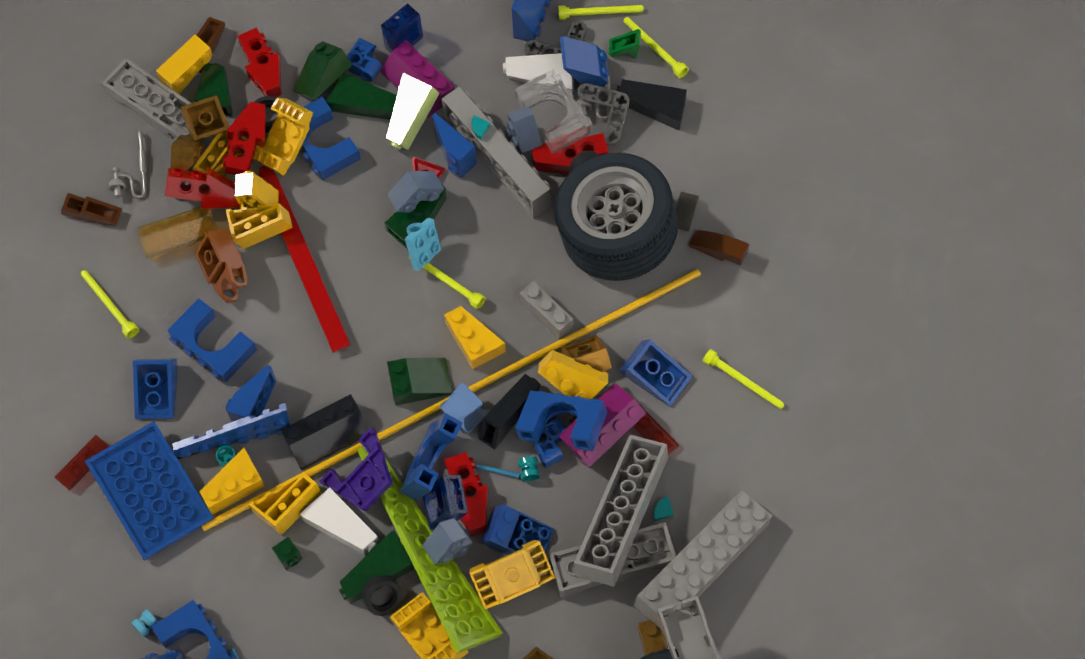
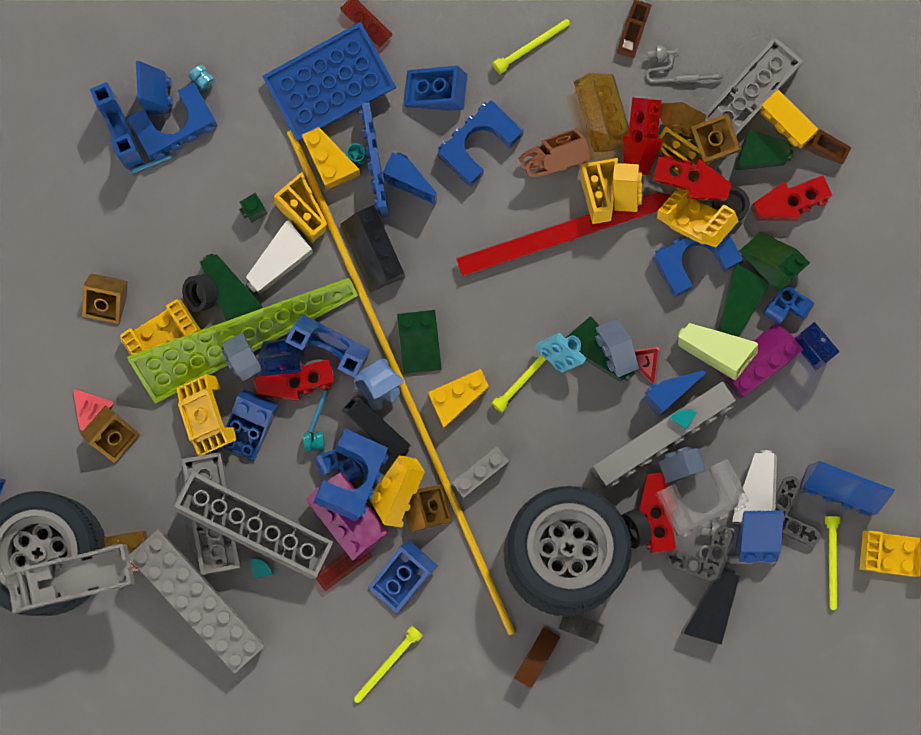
camera: 90 degrees right, 15 degrees up
(369, 478) = (312, 285): dark purple wing -> none
(625, 43) = (785, 584): green slope -> none
(678, 68) = (753, 640): neon yellow piece -> none

